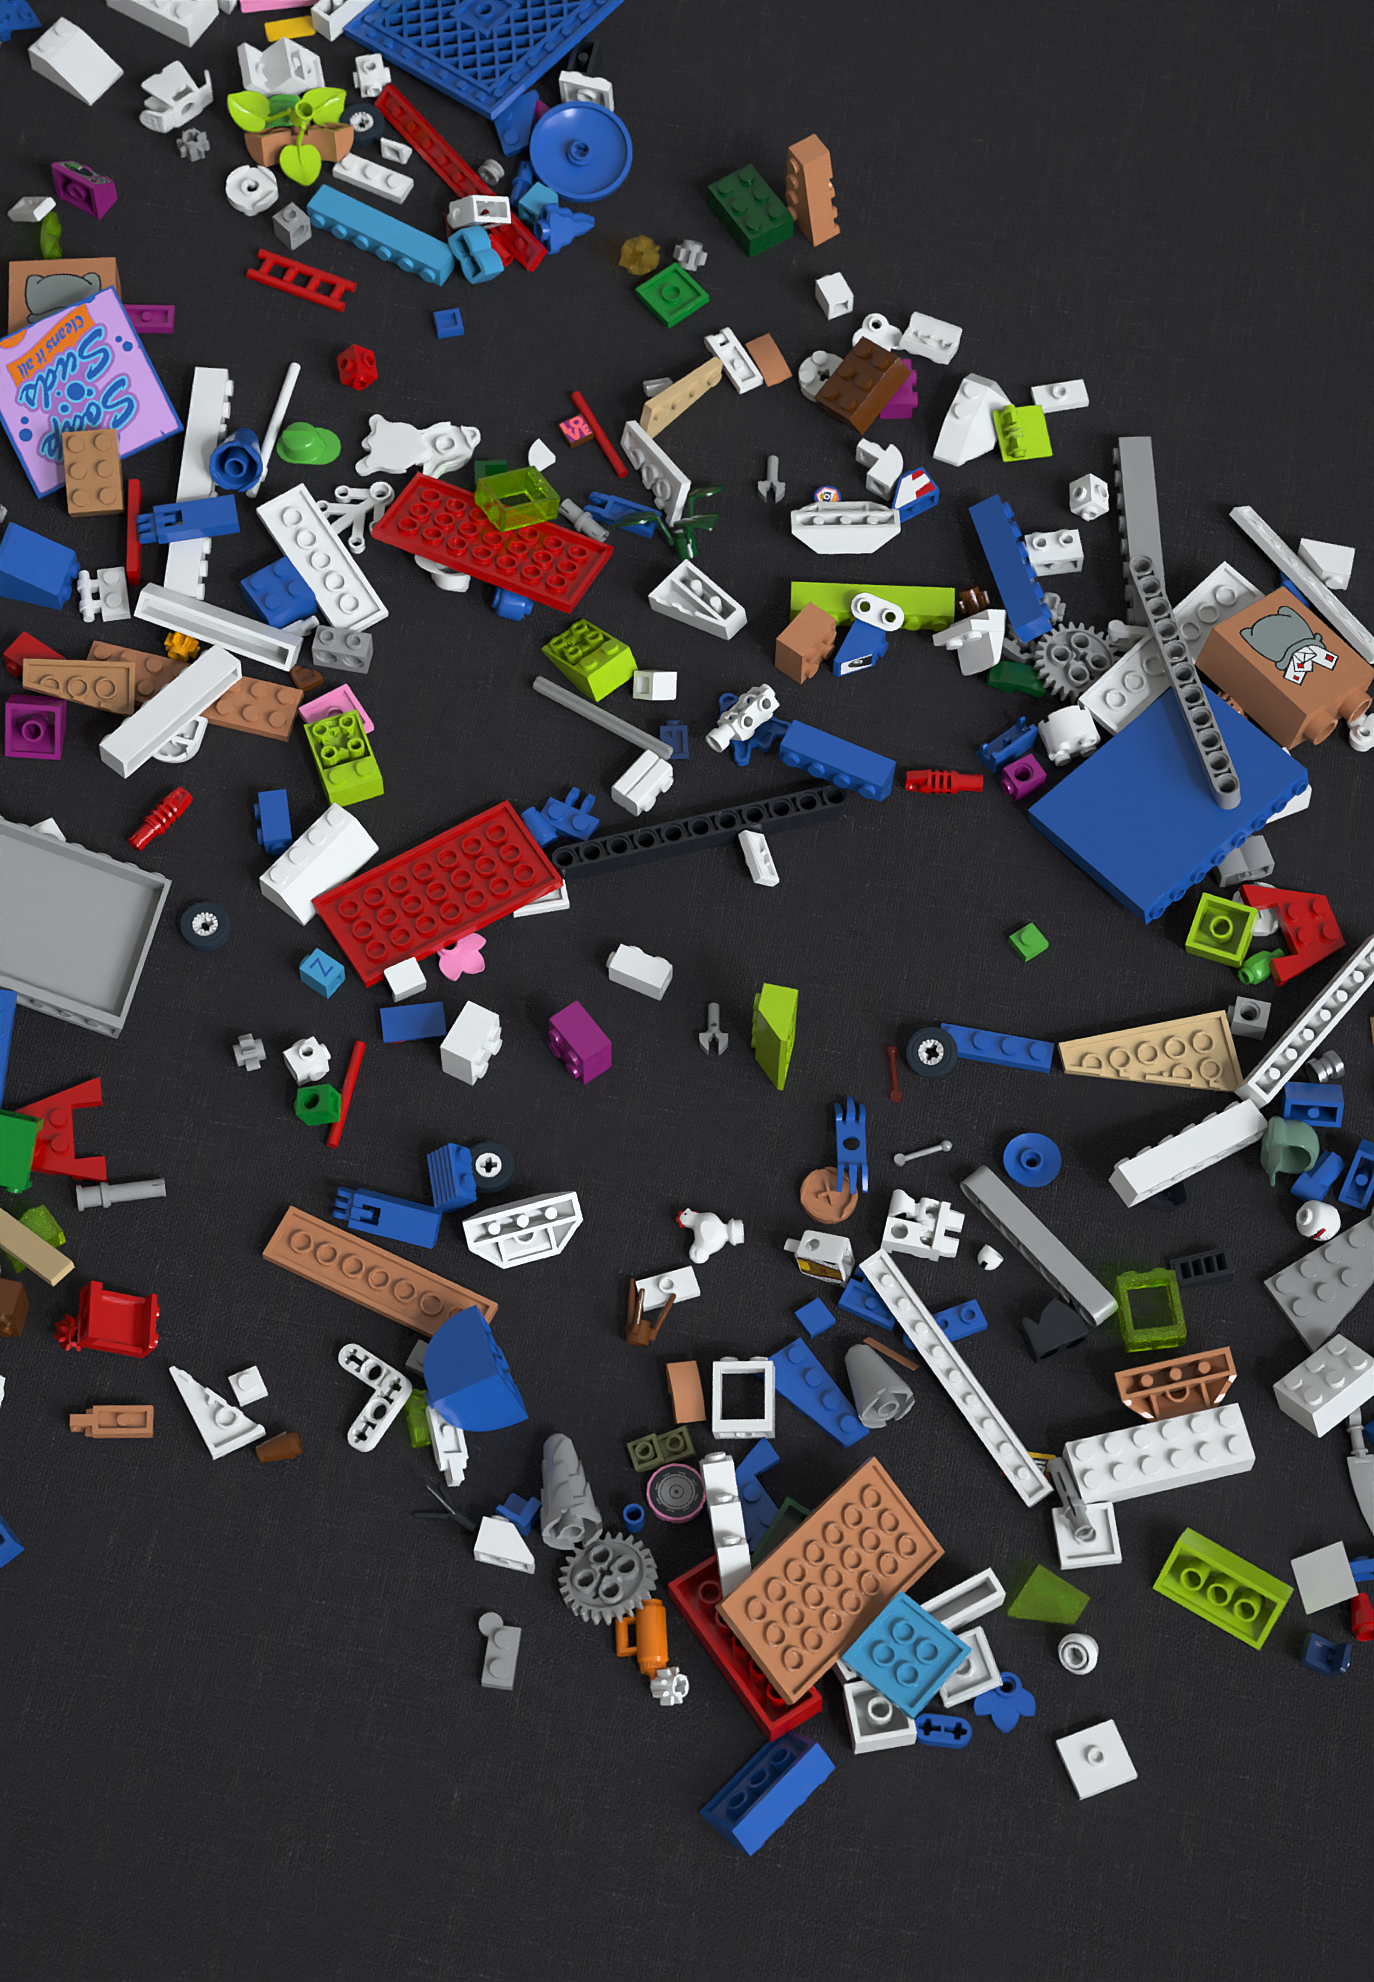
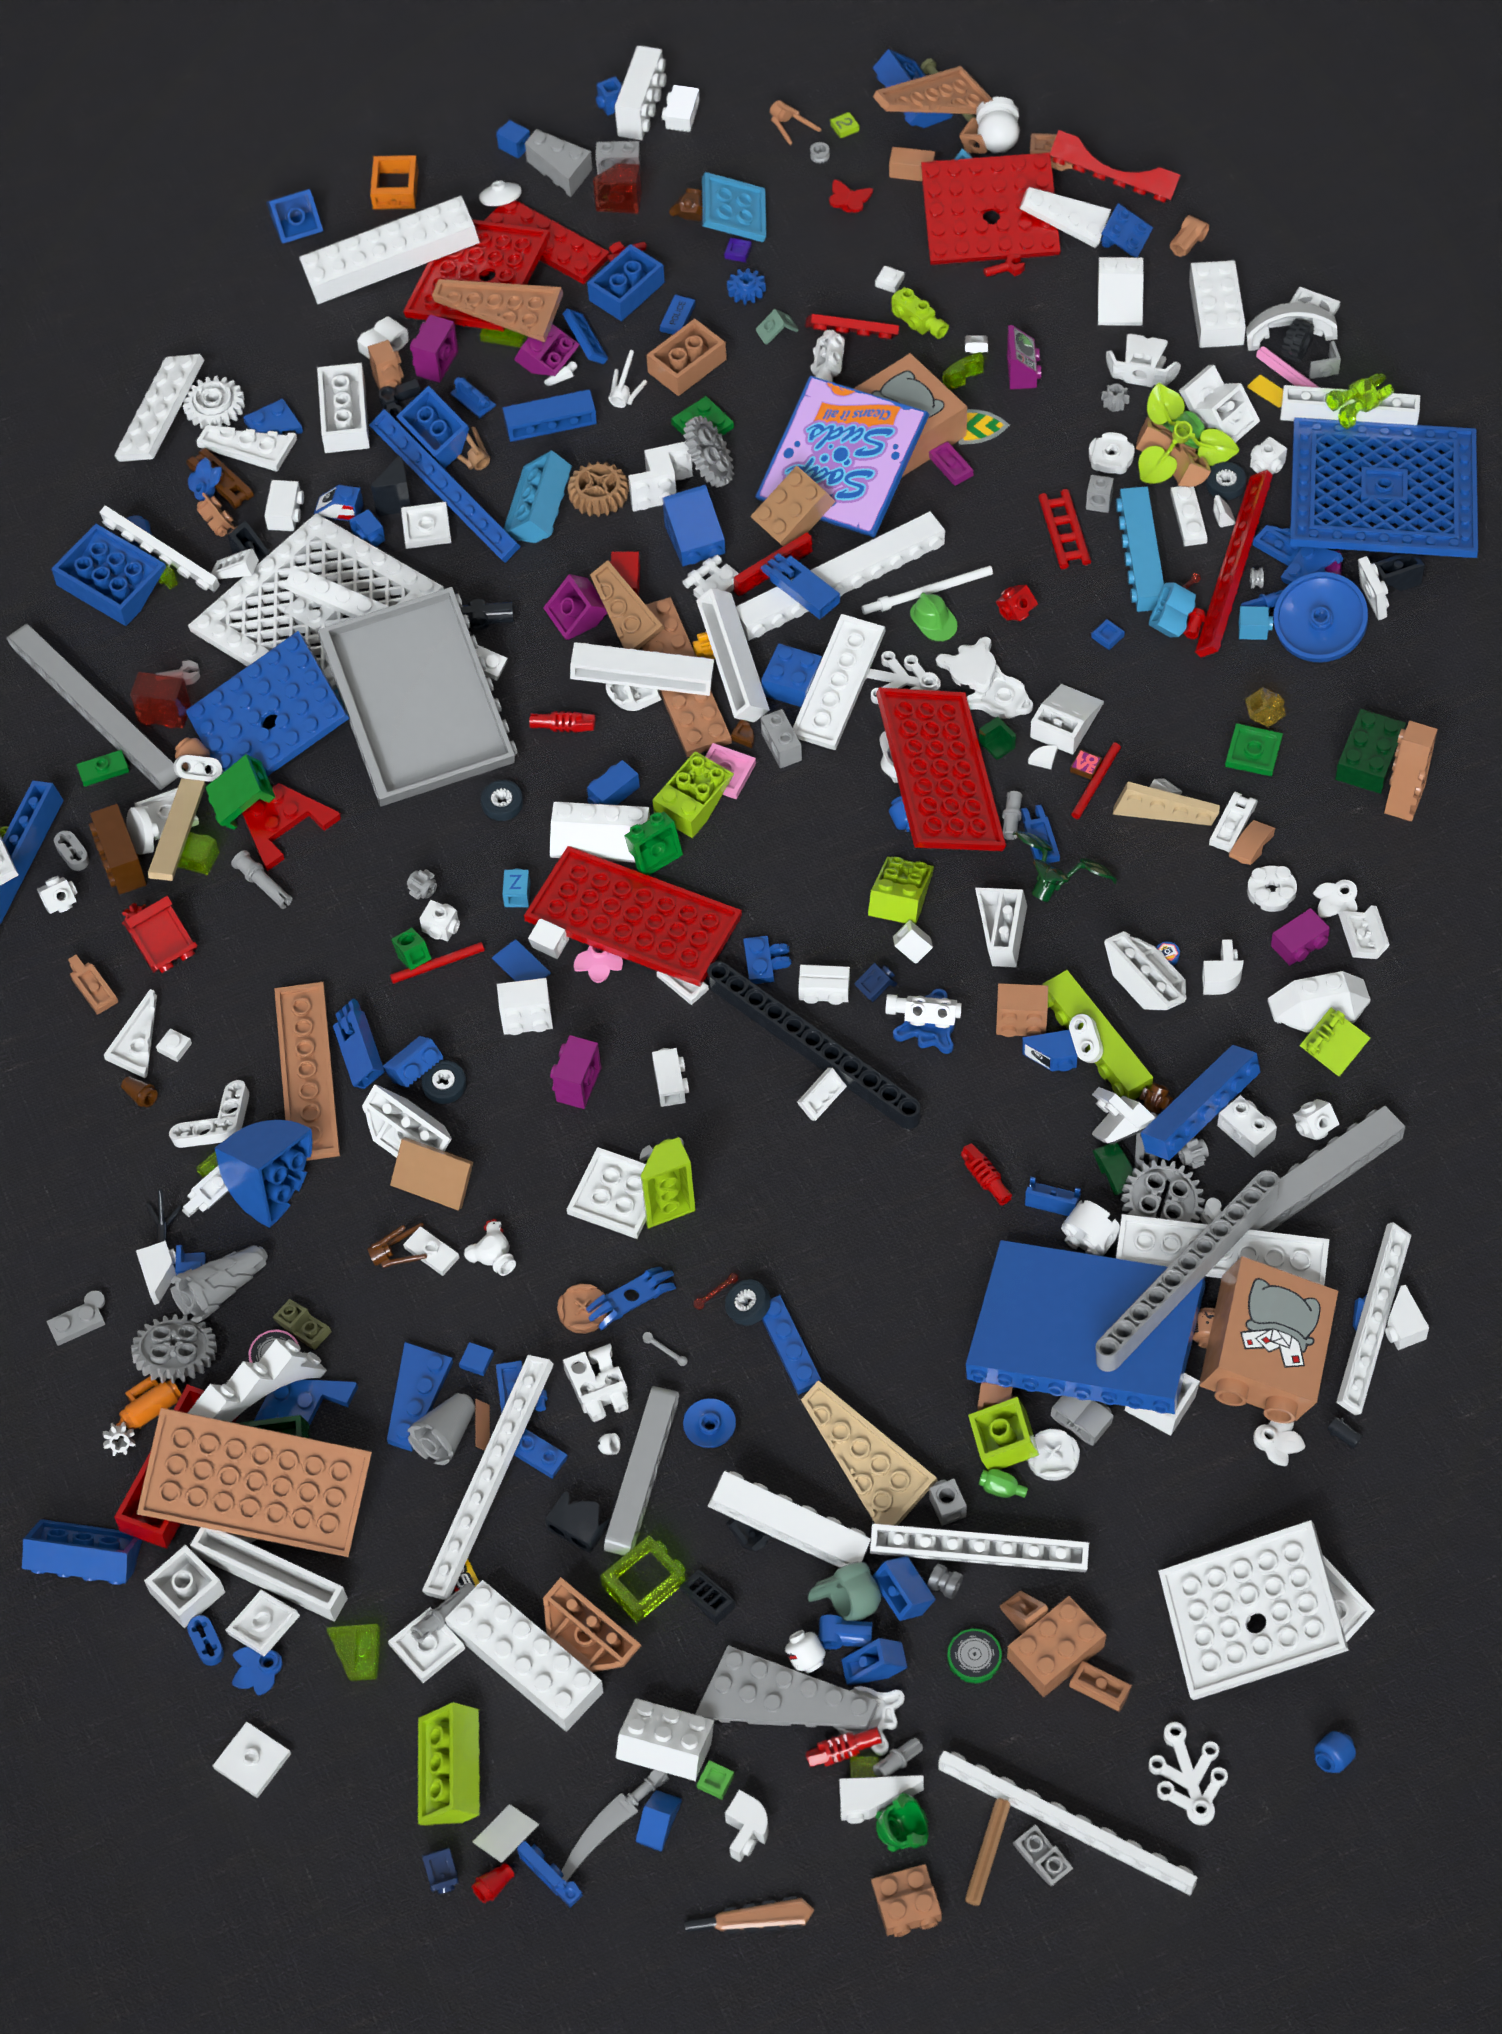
camera: 60 degrees right, 5 degrees down
(130, 268) = (982, 426): none -> sticker
(237, 461) = (875, 580): blue cone -> none
(302, 627) = (777, 704): white bar -> none
(376, 823) = (653, 843): none -> green plate
(467, 212) = (1205, 588): white torso -> none
(470, 130) = (1276, 544): none -> blue wing
(517, 412) = (1065, 718): none -> white slope
(524, 480) = (994, 747): clear neon green window -> none
(539, 827) = (734, 943): blue cone -> none
(560, 226) = (1247, 646): blue rock -> none
(591, 1234) = (431, 1173): none -> medium nougat tile
(602, 718) = (856, 926): light grey axle -> none
(630, 1510) = (235, 1332): blue hinge -> none
(657, 471) = (1091, 832): white wing -> none
(686, 1391) = (354, 1310): nougat slope -> none
(690, 255) = (1296, 738): light grey gear -> none
(730, 1091) = (611, 1194): none -> white plate
(744, 1428) = (383, 1364): white window -> none
(772, 473) = (1151, 910): light grey bar -> none
(823, 1256) = (522, 1324): white torso -> none
(834, 295) = (1346, 848): white brick -> none
(837, 761) = (932, 1090): blue slope -> none
(862, 385) = (1274, 909): reddish brown brick -> none
(906, 1655) = (230, 1569): dark azure plate -> none
(915, 494) = (1214, 1004): slope -> none
(1026, 768) = (1033, 1233): magenta brick -> none
(1028, 942) = (896, 1313): bright green plate -> none
(1060, 396) = (1395, 1049): white plate -> none
(1078, 1653) = (325, 1694): white cone -> none
(1177, 918) = (993, 1394): none -> nougat brick
(1305, 924) = (1060, 1497): red wing -> none

